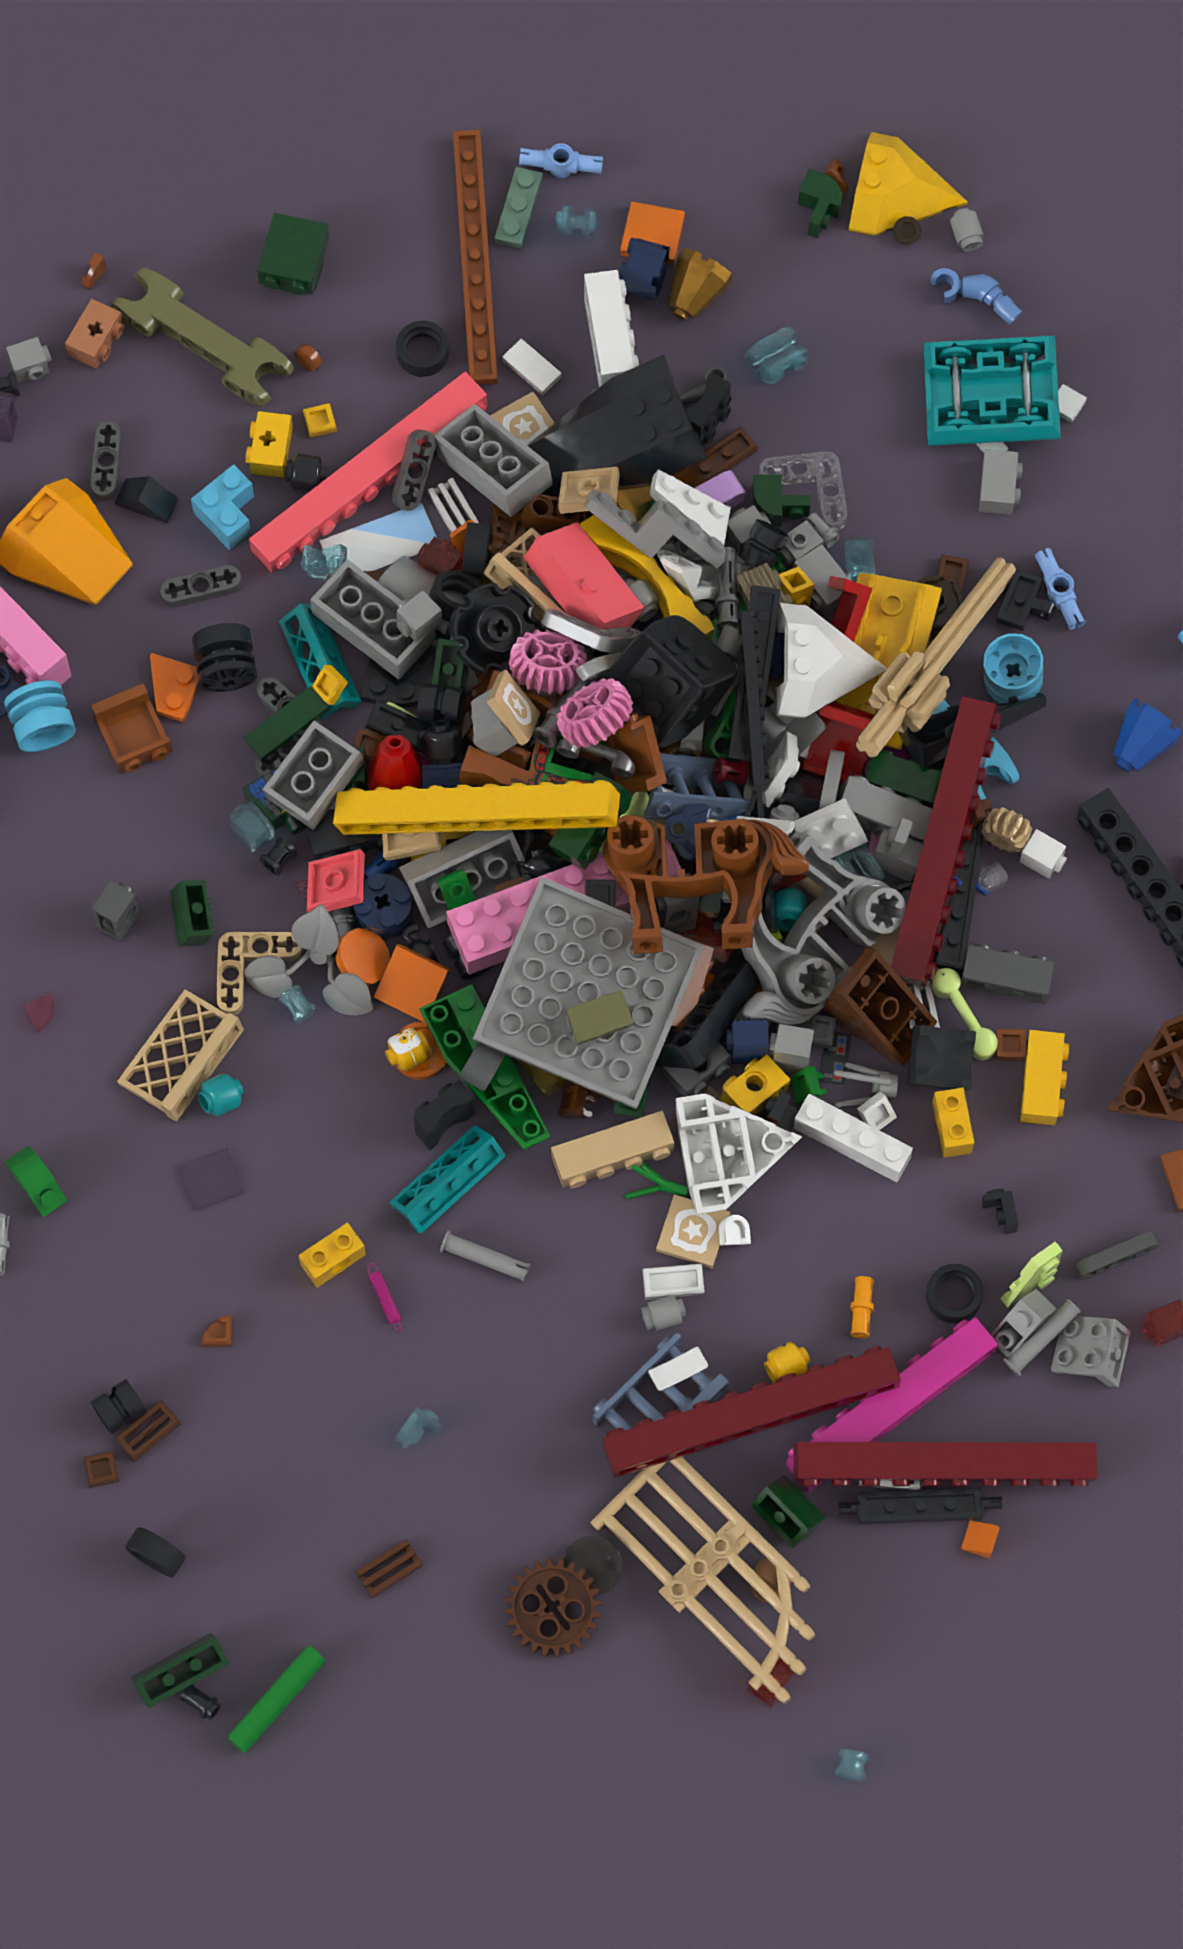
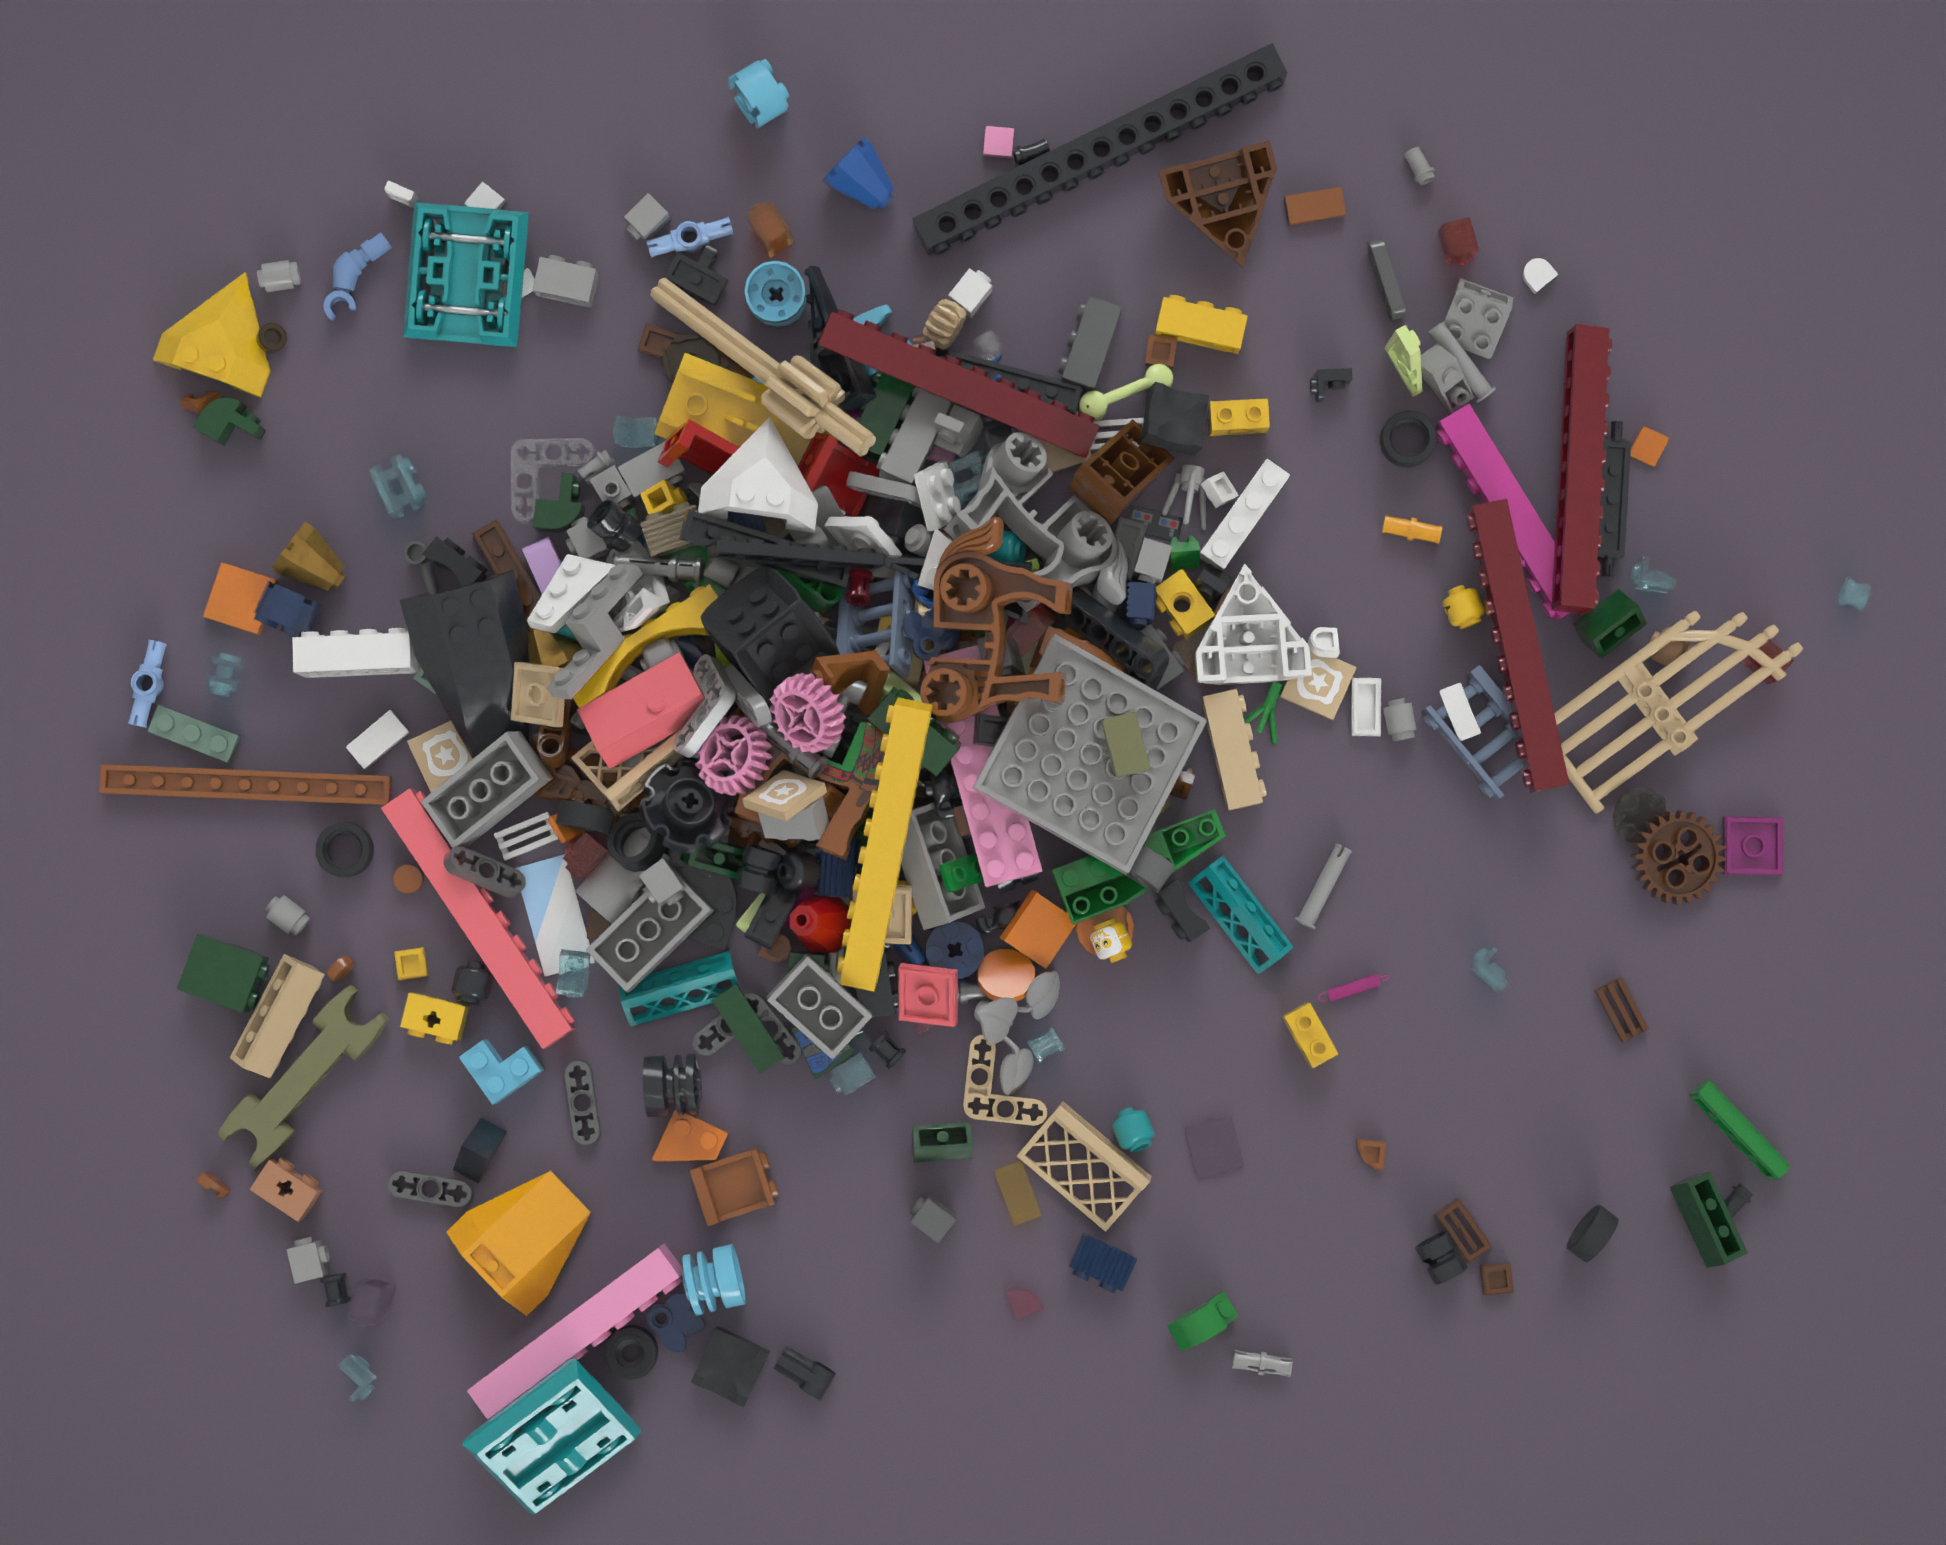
camera: 80 degrees left, 15 degrees up
(85, 1079) = (1102, 1262): none -> dark blue brick
(148, 995) = (1017, 1192): none -> clear yellow tile
(257, 306) = (277, 1016): none -> tan brick
(329, 684) = (713, 981): yellow tile -> none
(354, 305) = (287, 915): none -> light grey brick
(399, 407) = (408, 879): none -> dark orange tile
(574, 1688) = (1753, 845): none -> magenta tile
(838, 1556) = (1655, 581): none -> clear light blue bracket
(1062, 326) = (401, 194): none -> white tile
(1072, 547) = (646, 218): none -> light grey brick
(1077, 656) = (769, 228): none -> clear orange brick
(1146, 1409) = (1538, 274): none -> white tile

